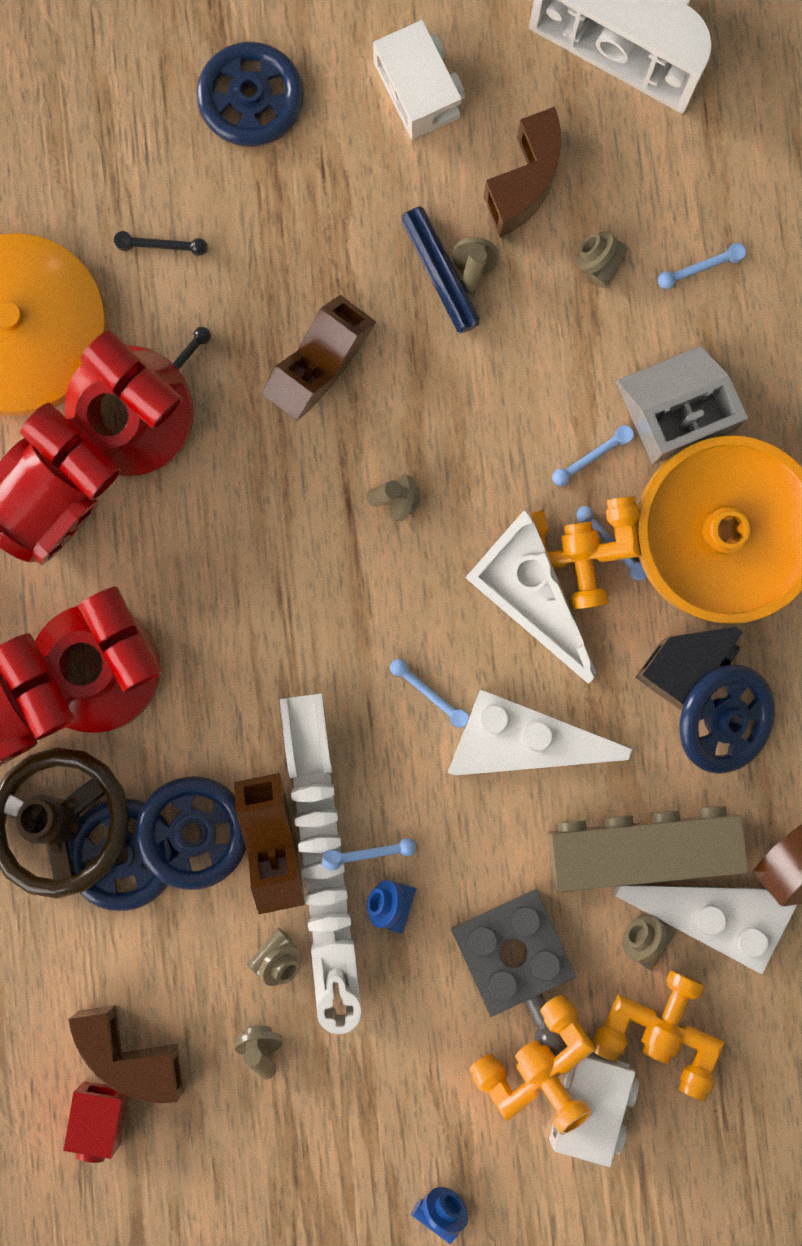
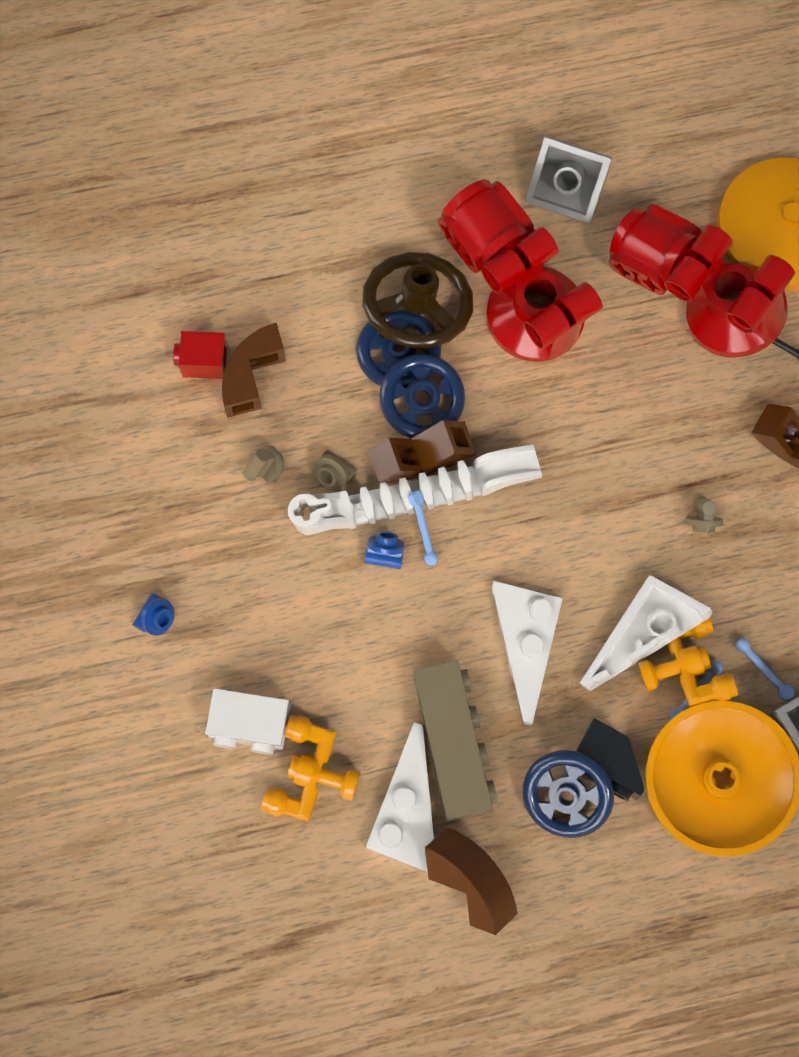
camera: 85 degrees right, 10 degrees down
(457, 717) = (569, 536): light blue hinge -> none
(507, 985) = (350, 672): dark grey plate -> none
(541, 1070) = (274, 672): light orange piece -> none
(647, 940) = (381, 752): dark tan plate -> none

